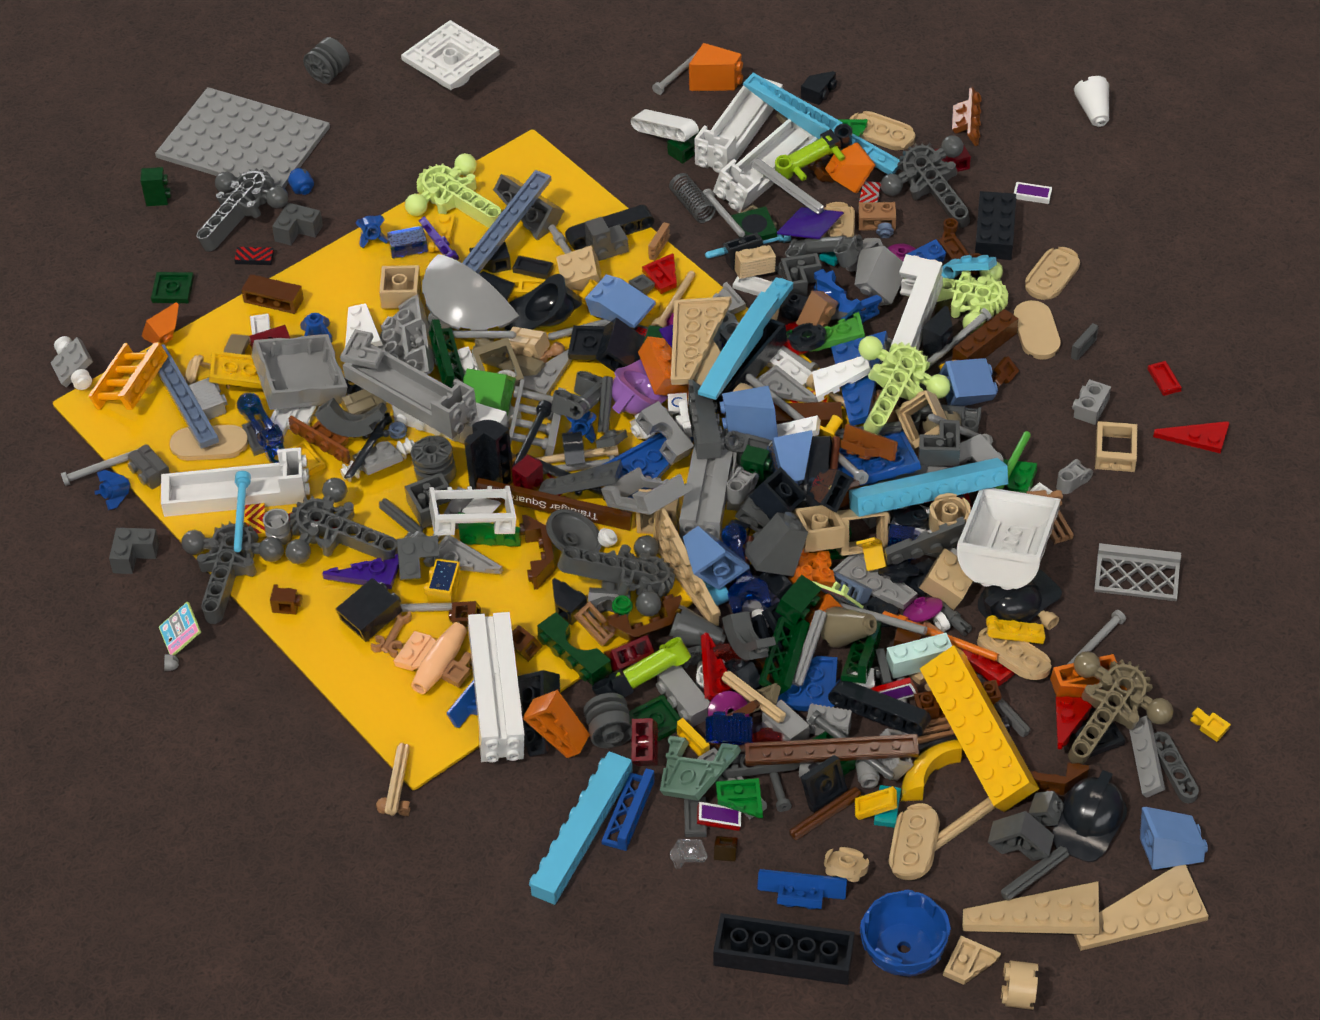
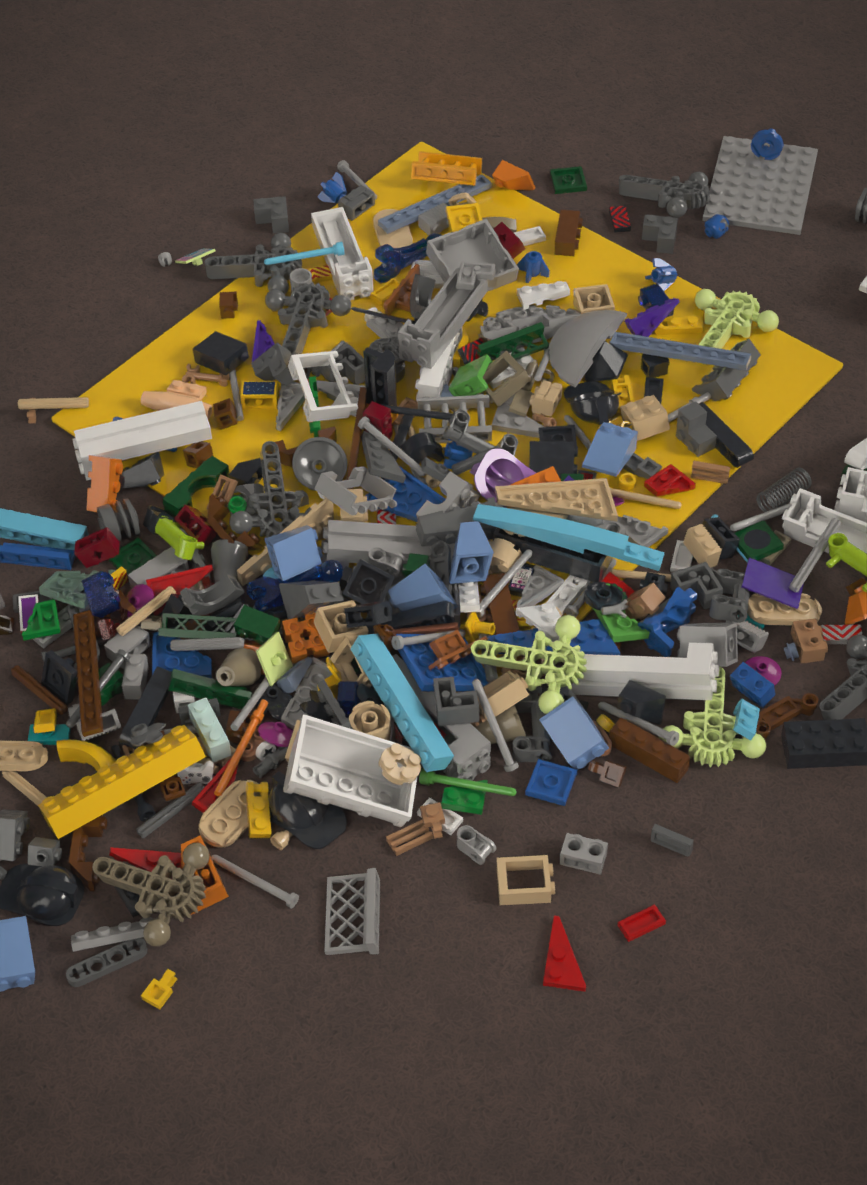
camera: 80 degrees right, 0 degrees up
(72, 362) = (463, 137): light grey plate -> none
(154, 186) = (673, 139): dark green brick -> none
(204, 112) = (767, 136): none -> blue plate
(537, 481) = (364, 423): none -> light grey bar
(829, 328) = (616, 609): none -> light grey bar
(898, 689) = (171, 720): tile -> none
(932, 694) = (143, 734): none -> dark grey plate
(1004, 494) = (403, 755): none -> tan plate
(1008, 414) = (551, 782): none -> blue plate
(1037, 329) = (684, 798): tan tile -> none
(1052, 273) = (775, 806): tan tile -> none

